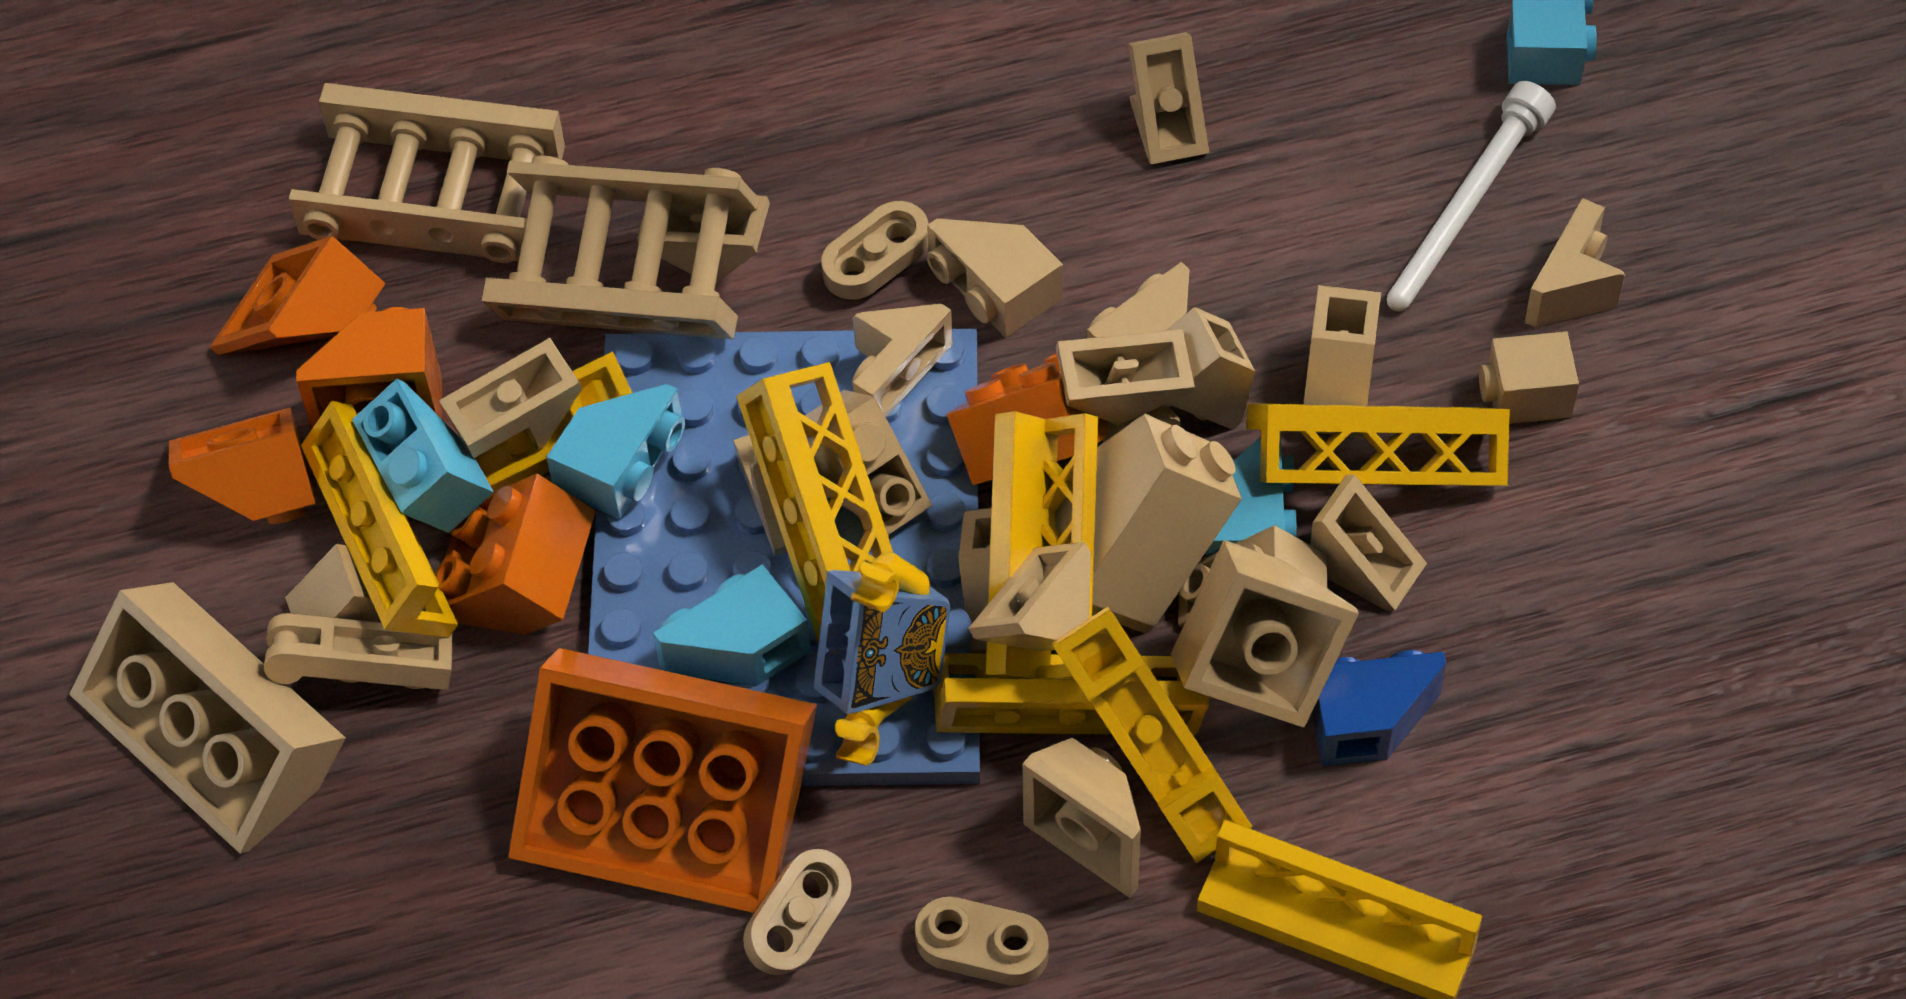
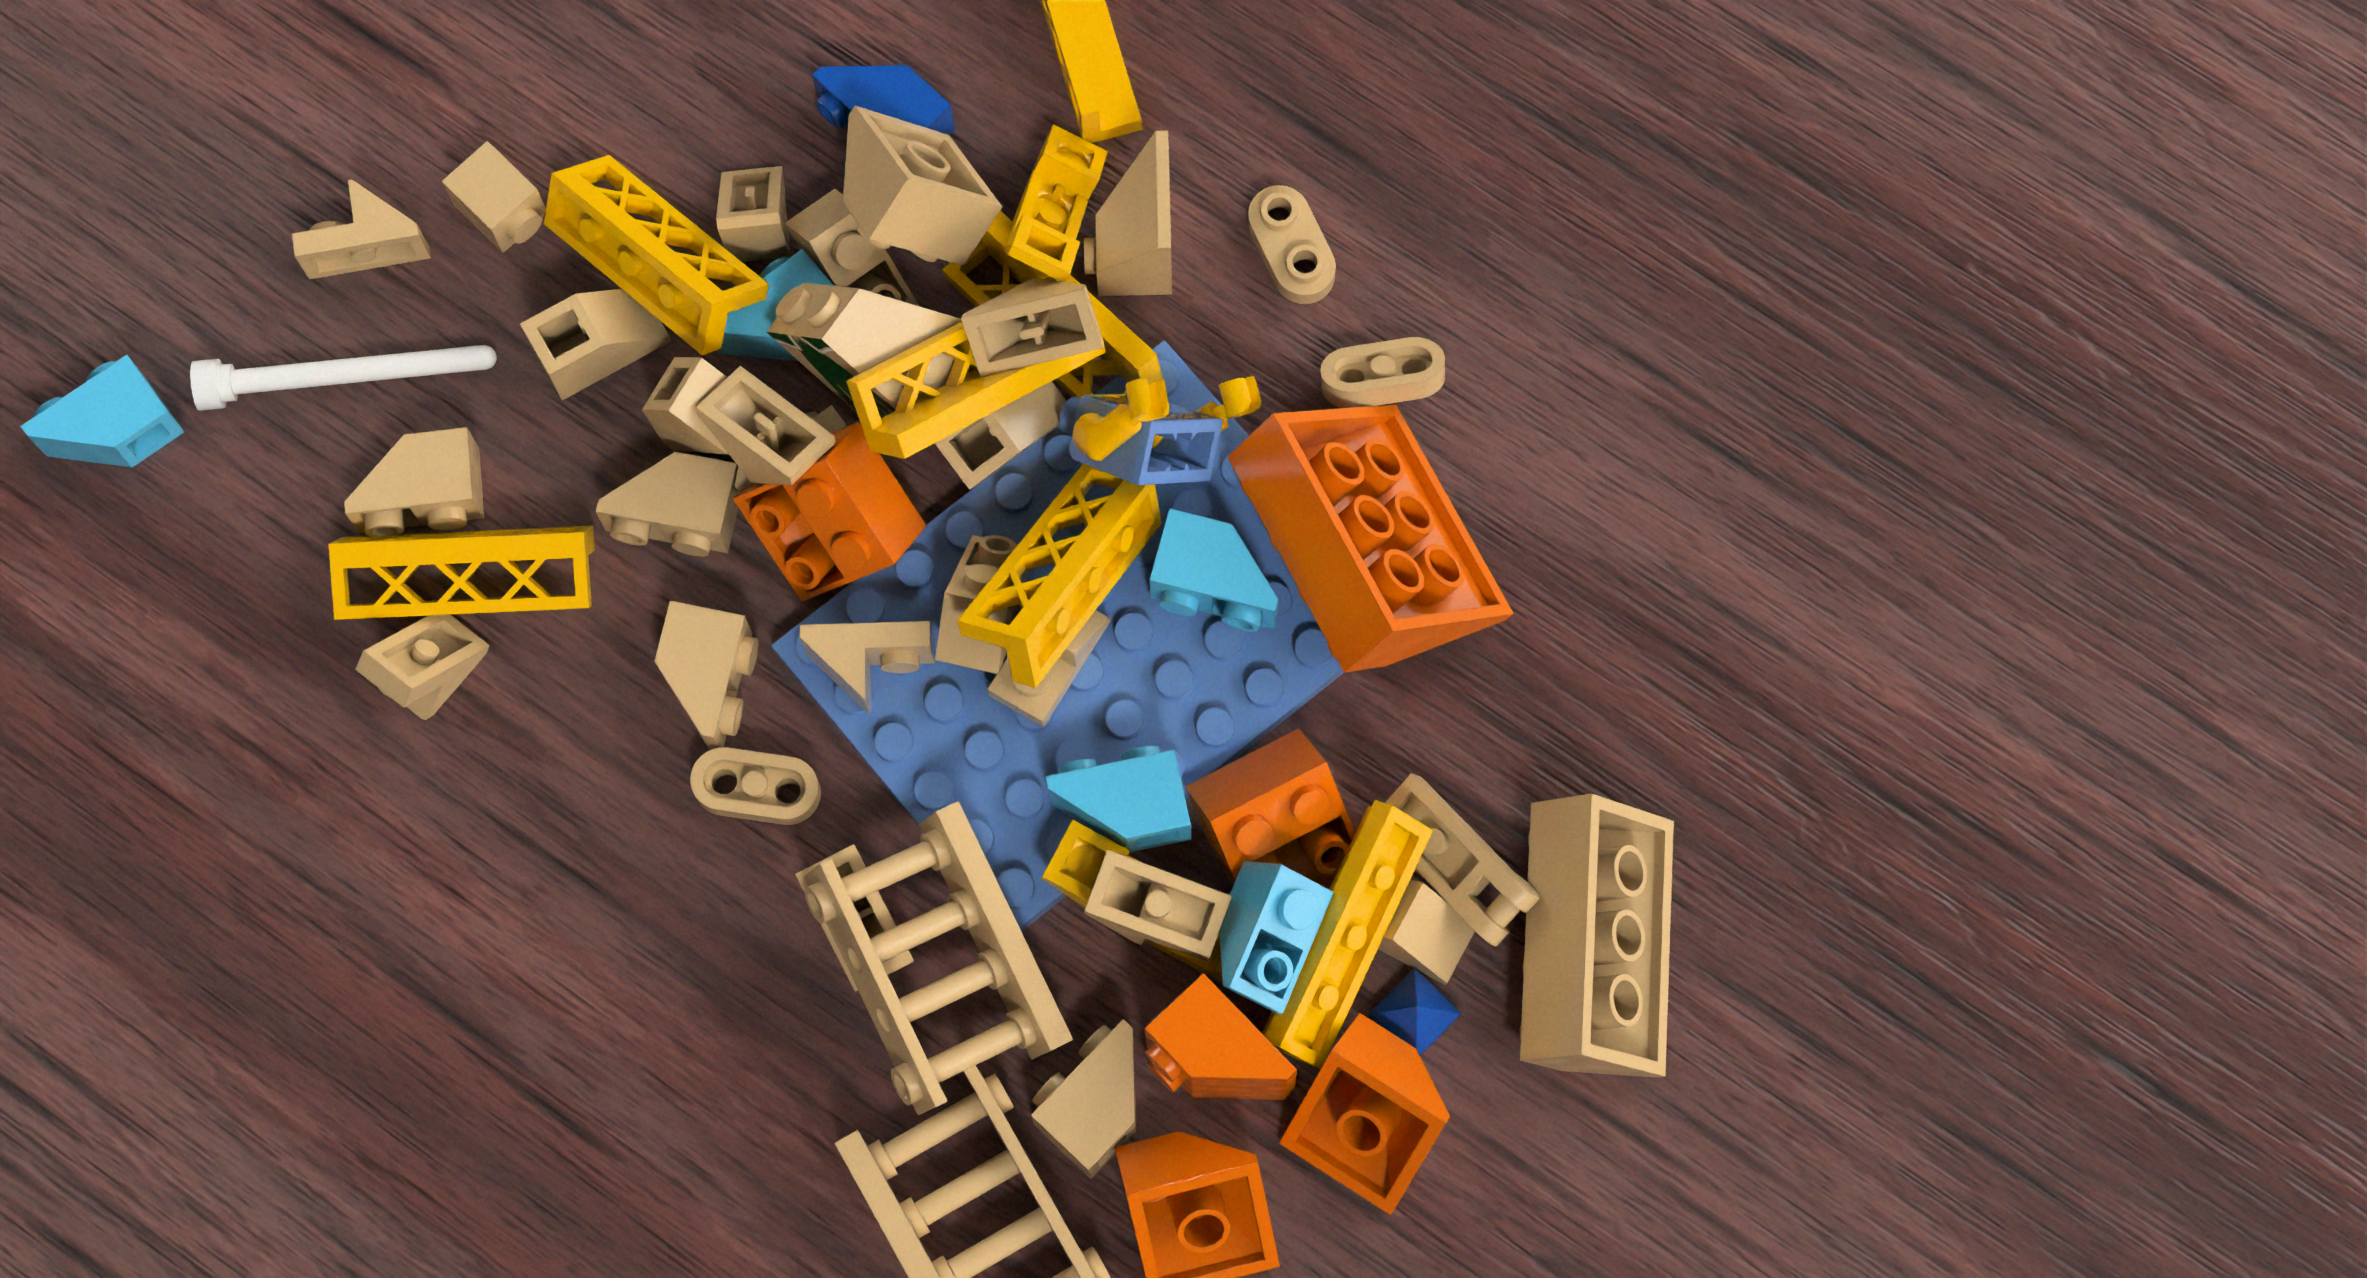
camera: 130 degrees left, 15 degrees up
(283, 560) = (1415, 1012): none -> blue slope
(435, 279) = (1095, 1103): none -> tan slope
(1237, 172) = (461, 547): none -> yellow fence
(1316, 188) = (421, 482): none -> tan slope

